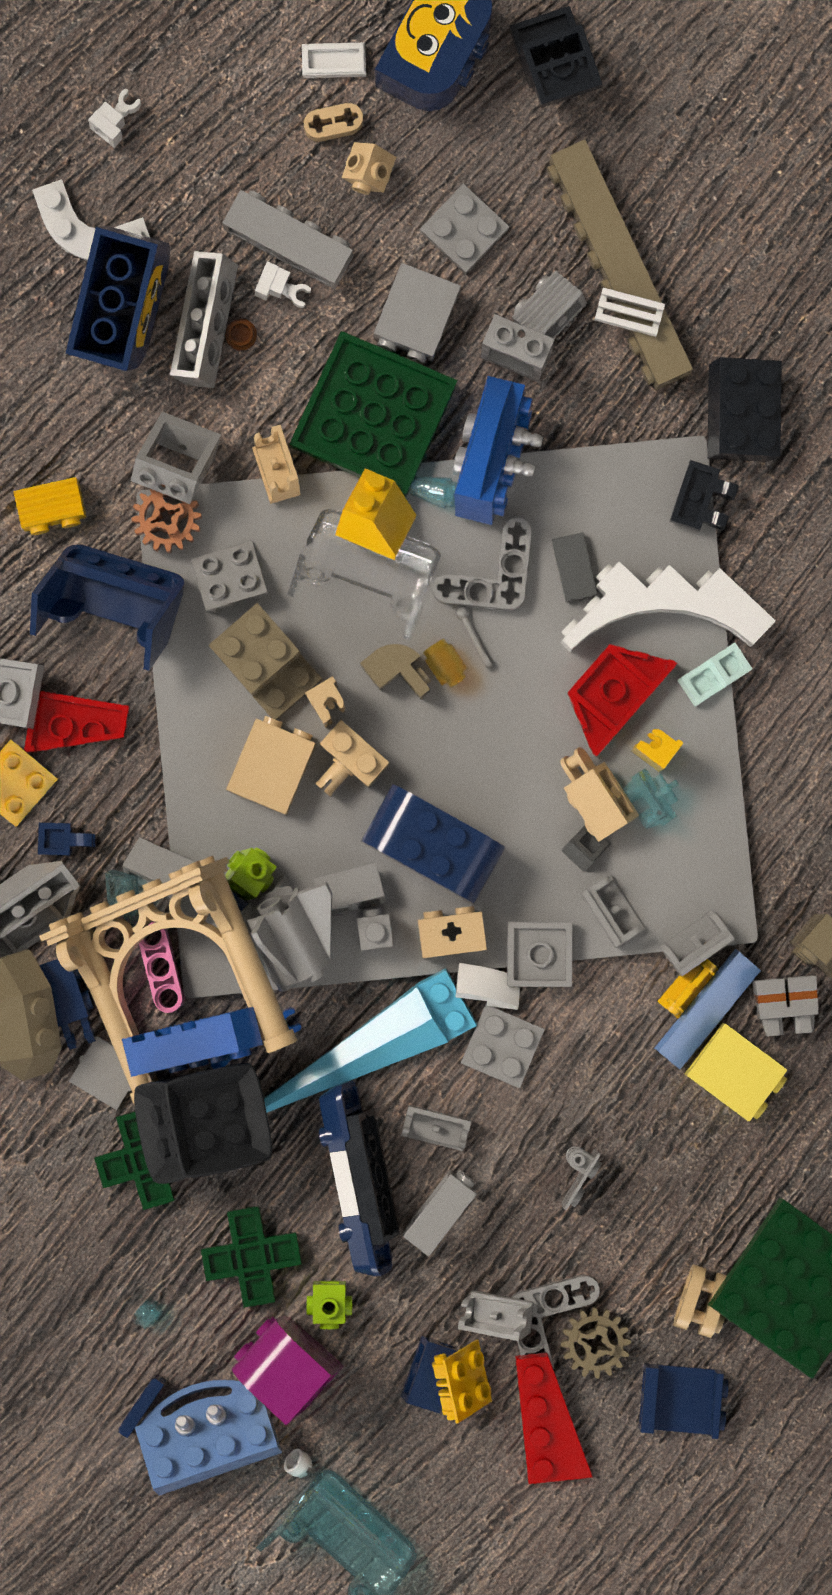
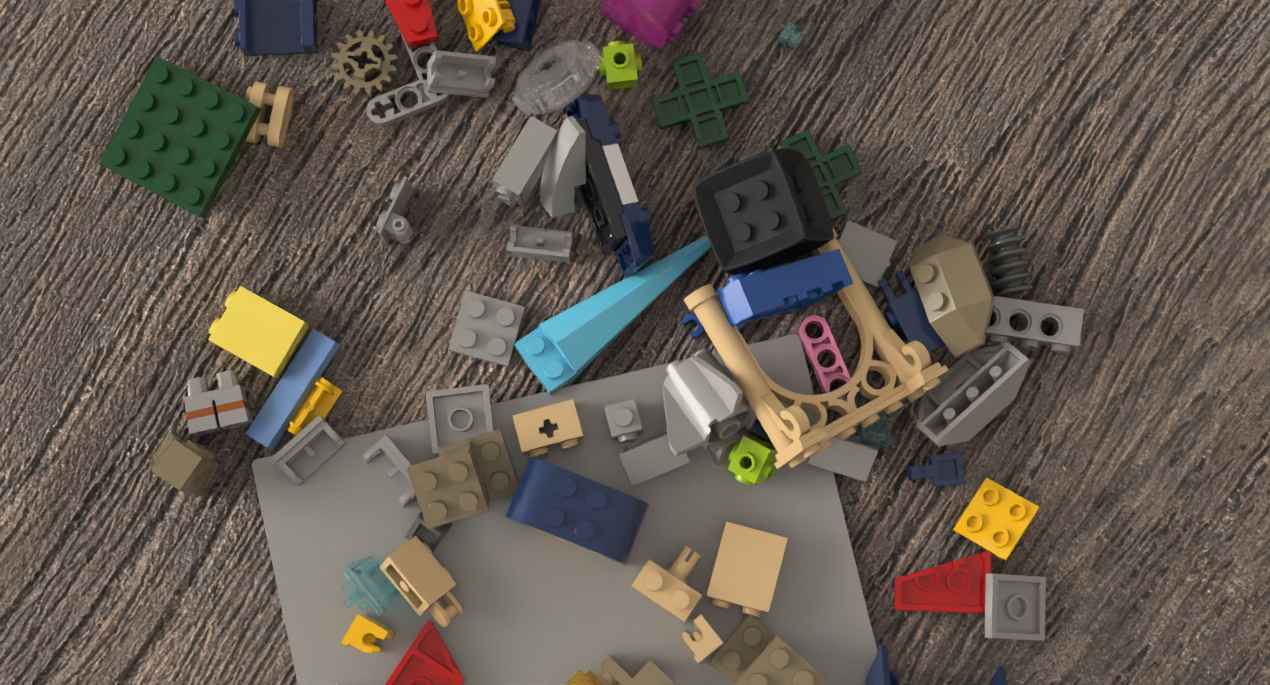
camera: 175 degrees right, 5 degrees down
(396, 1297) = (556, 77): none -> clear gear
(401, 1197) = (564, 169): none -> light grey slope
(486, 985) = (509, 383): white slope -> none
(543, 891) = (463, 478): none -> dark tan bracket

